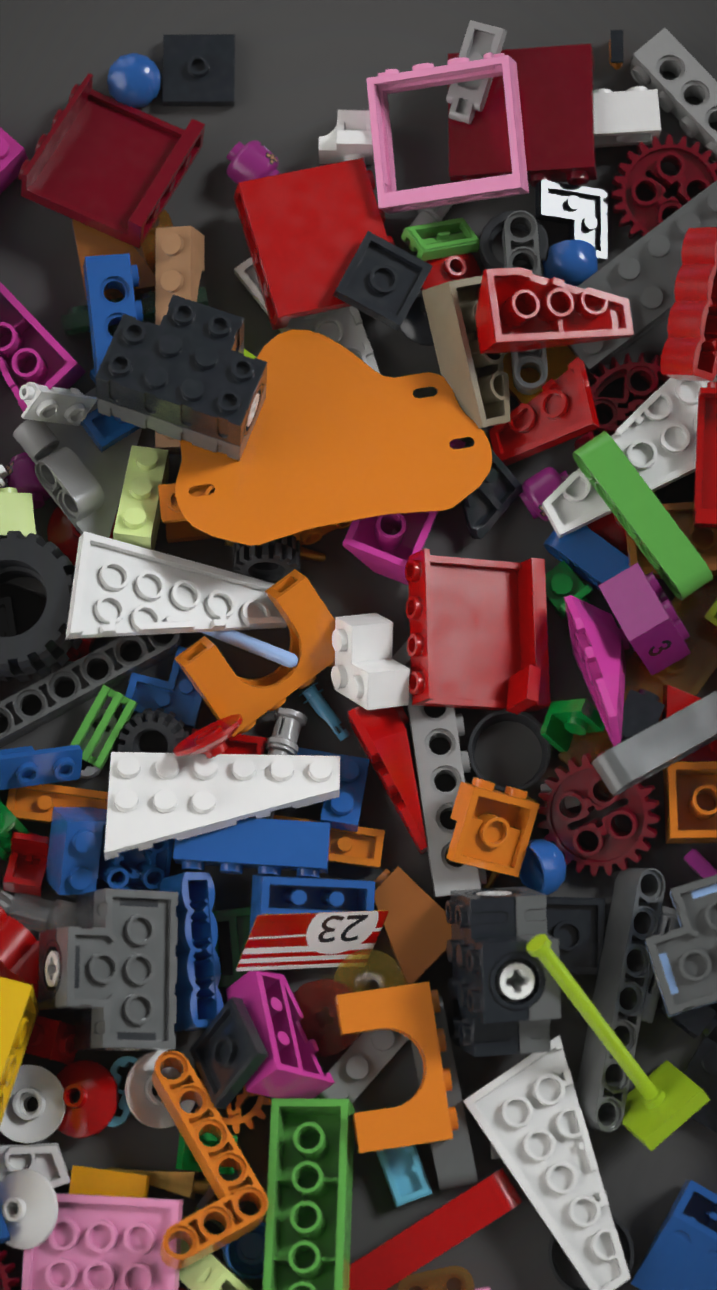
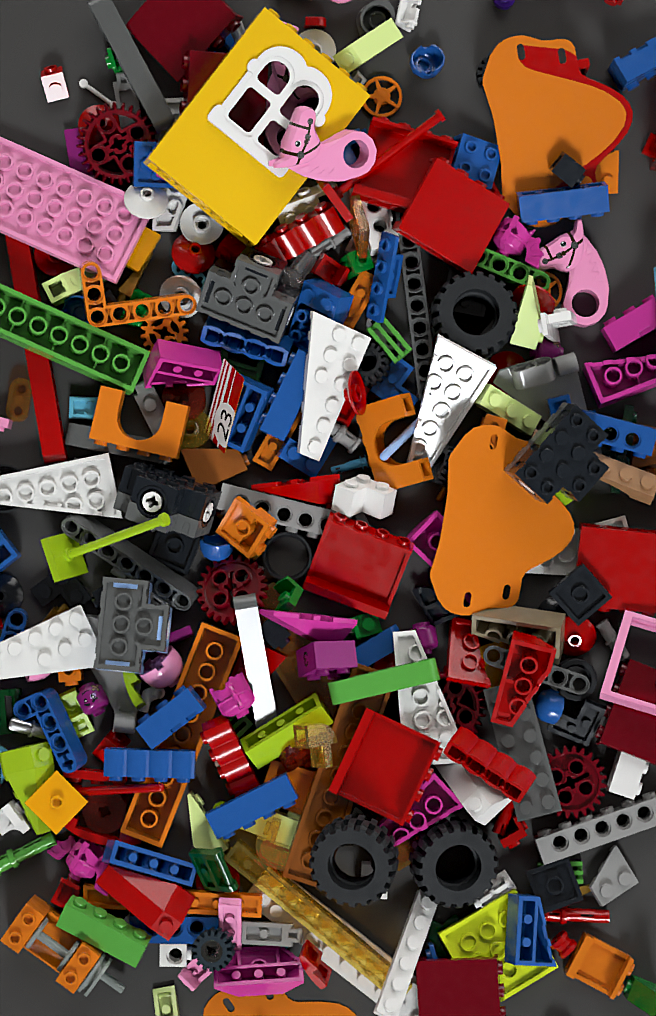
camera: 115 degrees right, 10 degrees up
(55, 405) = (581, 381): white hinge -> none
(228, 1052) = (182, 337): black plate -> none
(445, 243) = (590, 639): bright green tile -> none
(523, 689) = (316, 577): red tile -> none

